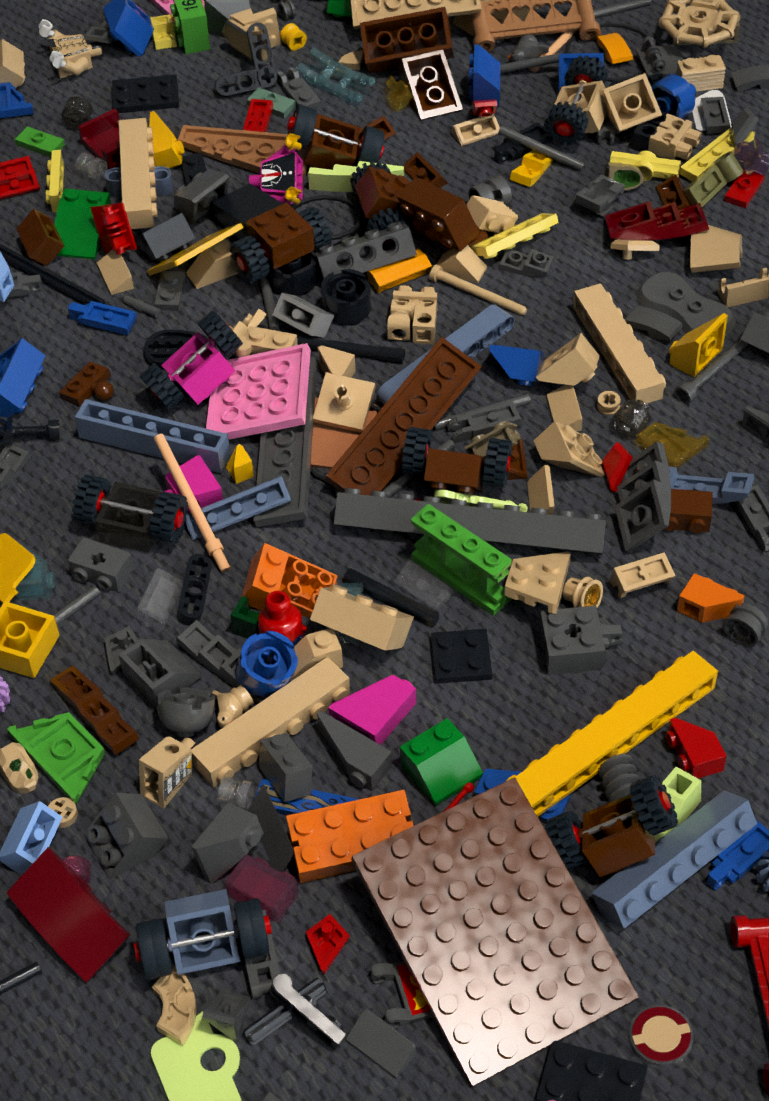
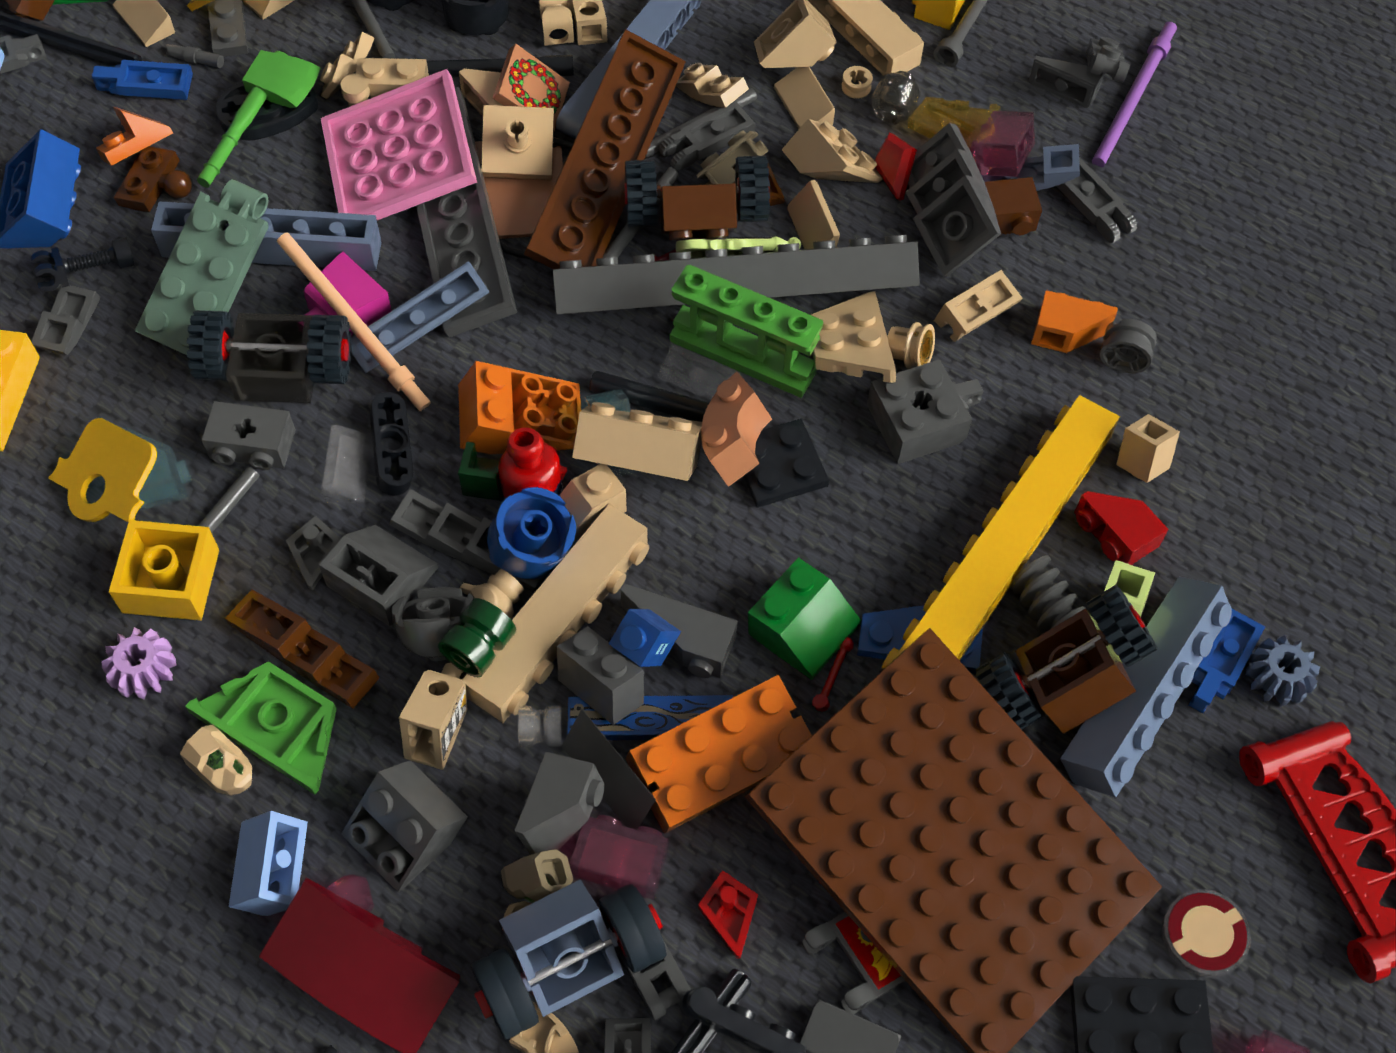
camera: 20 degrees left, 10 degrees up
(65, 808) = (303, 805): tan tile -> none
(88, 352) = (139, 134): none -> orange slope
(105, 443) = (206, 263): none -> sand green hinge
(179, 332) = (270, 78): none -> bright green piece
(196, 365) = (300, 124): brick -> none
(201, 881) = (537, 875): none -> dark tan rock
(210, 719) = (473, 642): none -> dark green wheel
(240, 465) = (400, 254): yellow slope -> none
(303, 315) = (424, 31): light grey brick -> none
(321, 747) = (644, 637): none -> blue brick
(366, 363) = (530, 83): none -> tile
(376, 708) = (693, 561): dark pink slope -> none
(430, 623) = (732, 428): none -> nougat brick
(497, 387) = (710, 86): none -> tan slope
(518, 362) = (729, 48): blue slope -> none
(700, 464) = (1004, 143): none -> clear pink brick
(733, 698) = (1147, 448): none -> tan brick

